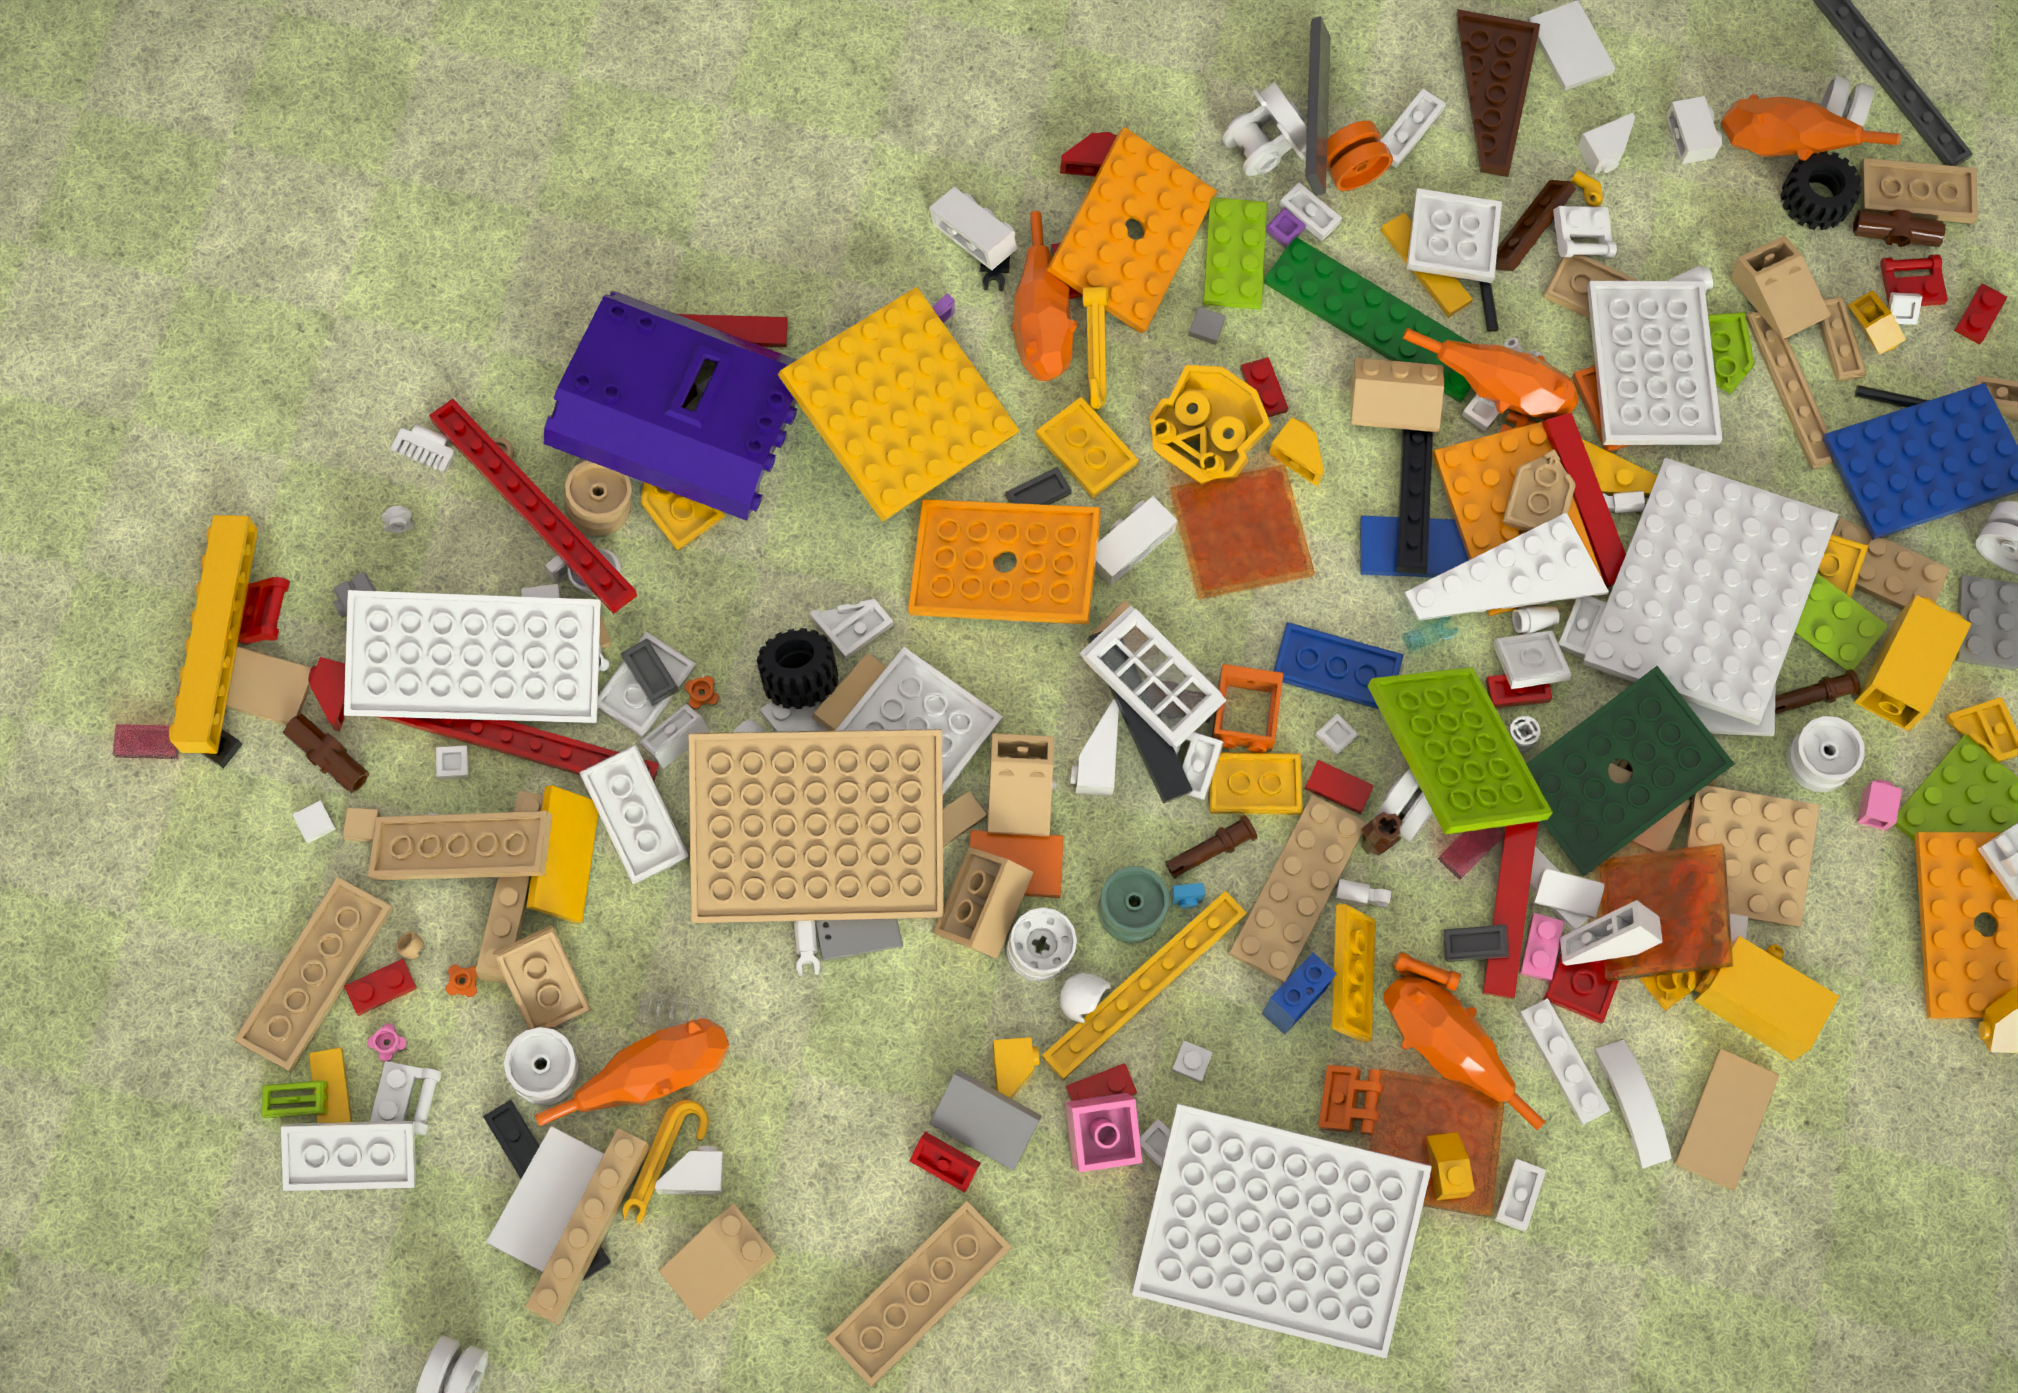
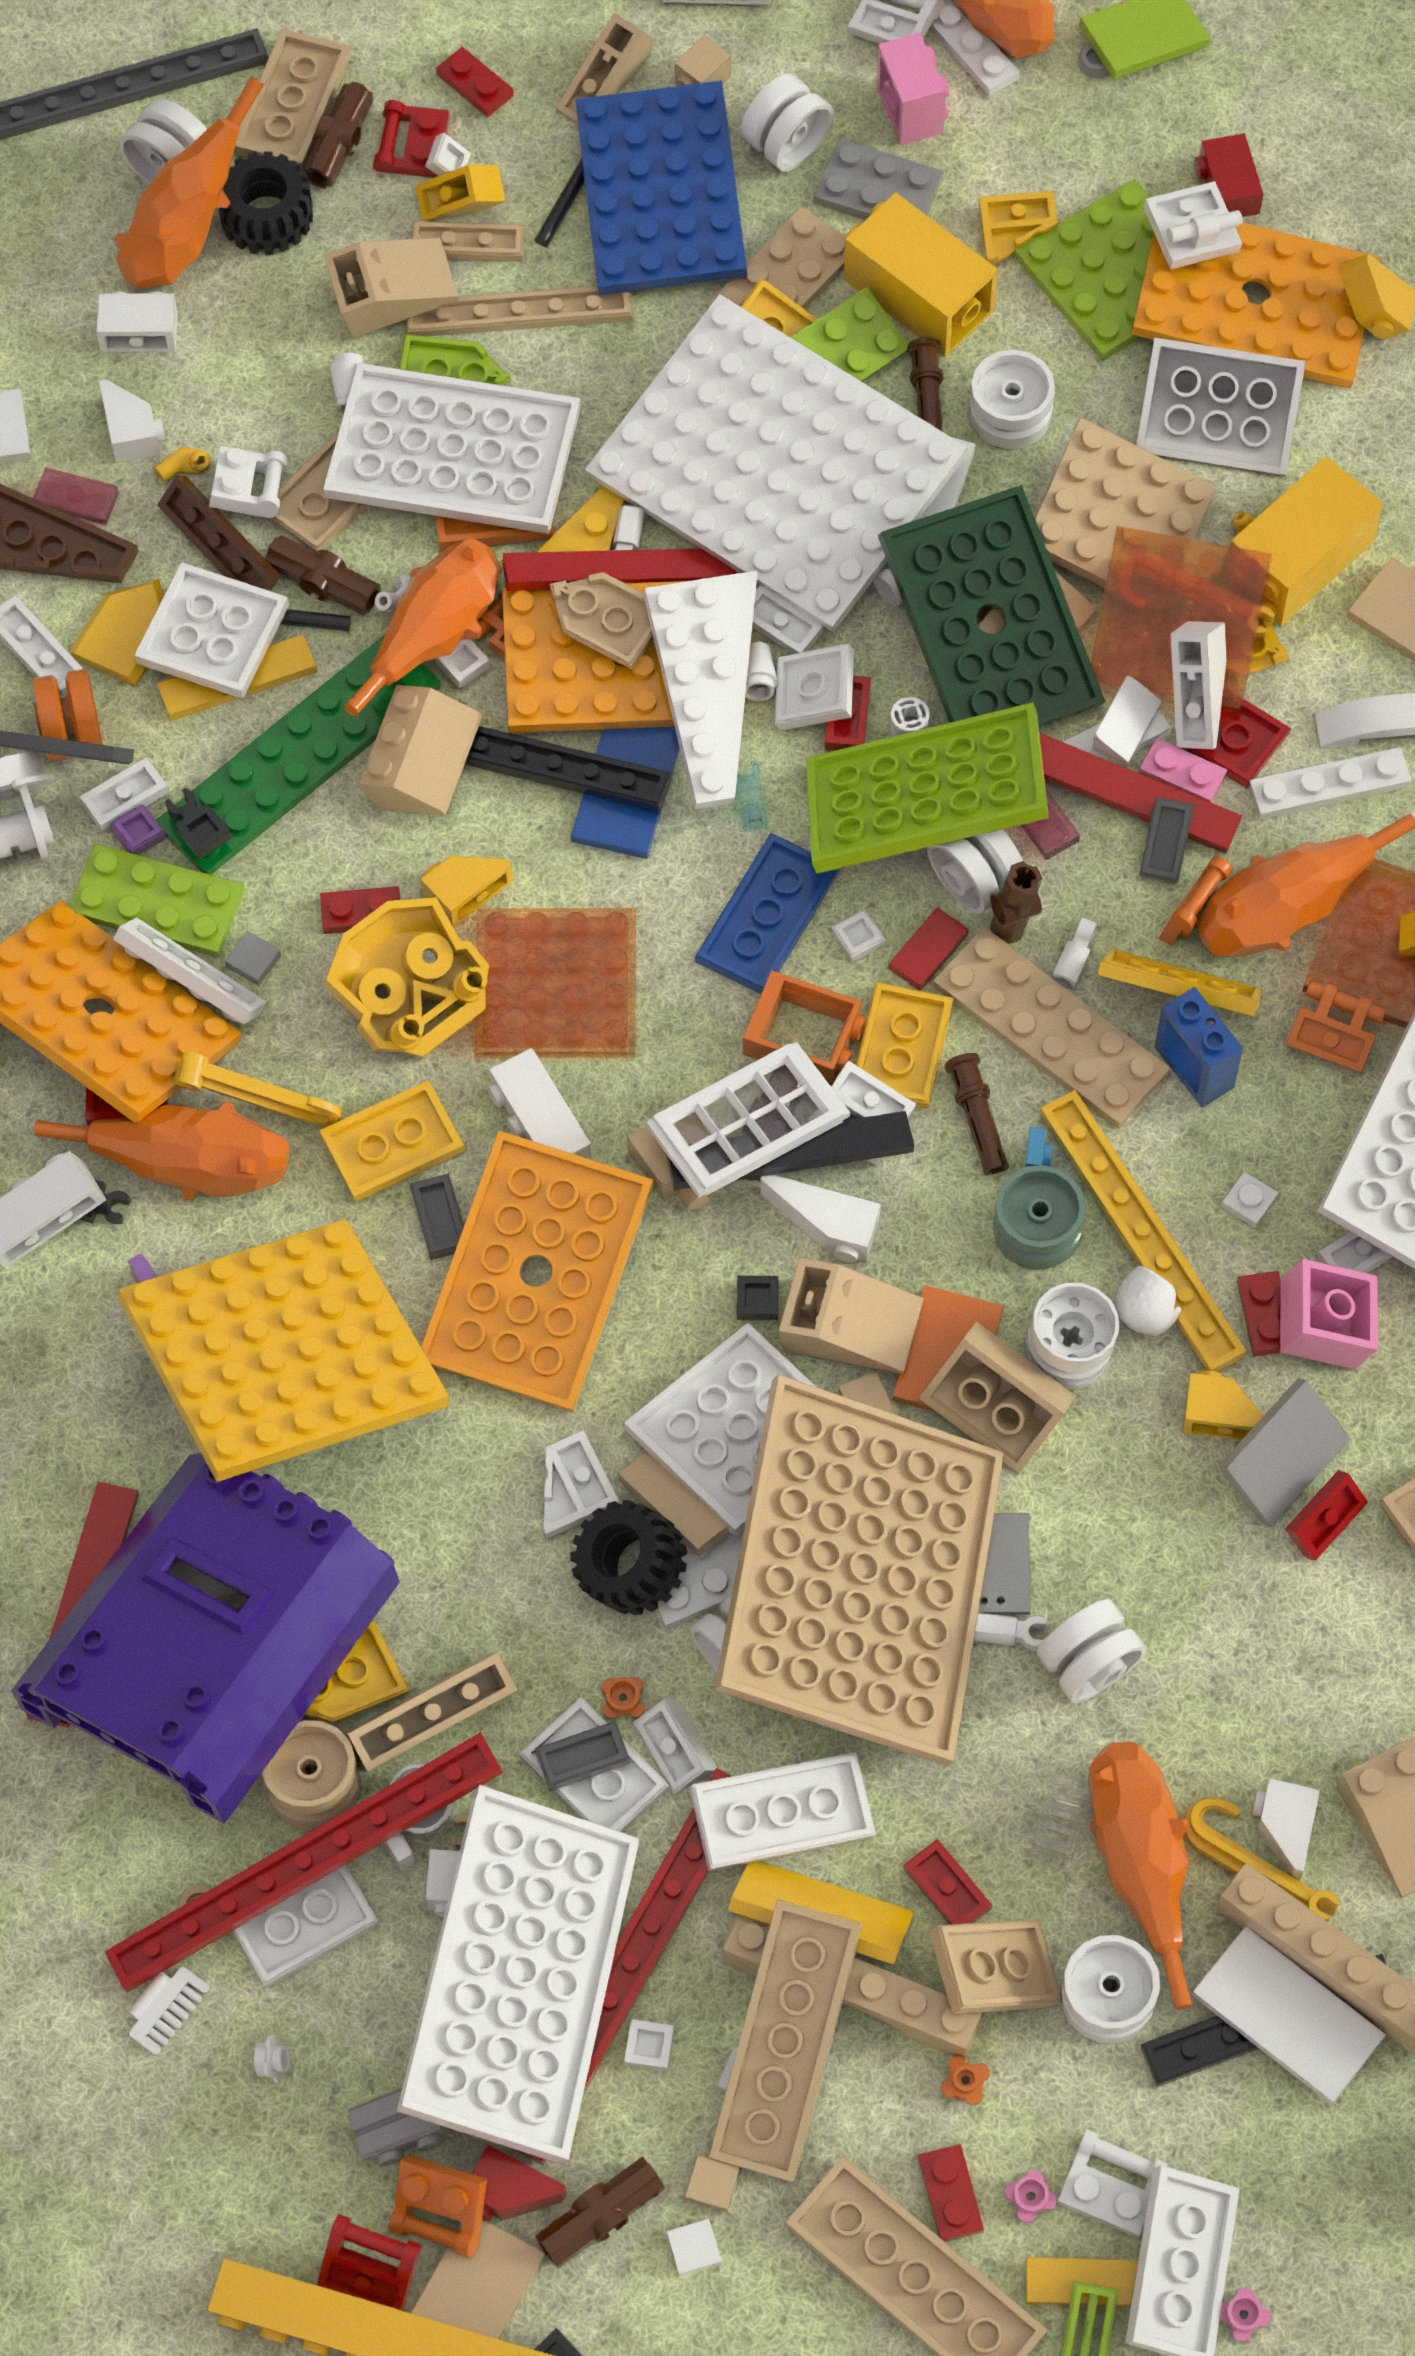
camera: 70 degrees left, 5 degrees down
(316, 647) = (441, 2192): none -> orange plate
(323, 1198) = (1257, 2316): none -> bright pink plate
(410, 945) = (893, 2149): tan hinge -> none
(496, 523) = (306, 1927): none -> white tile
(602, 941) = (947, 1885): none -> red plate
(659, 563) = (430, 1711): none -> tan brick
(794, 1004) = (1091, 1651): none -> white wheel
(1025, 719) = (757, 1297): none -> black plate
(1181, 284) = (181, 965): none -> white plate
(1293, 262) = (198, 827): none -> black plate
(1442, 176) = (117, 631): none -> yellow tile
(1524, 299) = (322, 575): none -> reddish brown piece
(1539, 124) = (77, 495): none -> clear pink plate
(1873, 916) = (1220, 406): none -> white slope
(1879, 804) = (1084, 361): bright pink brick -> none

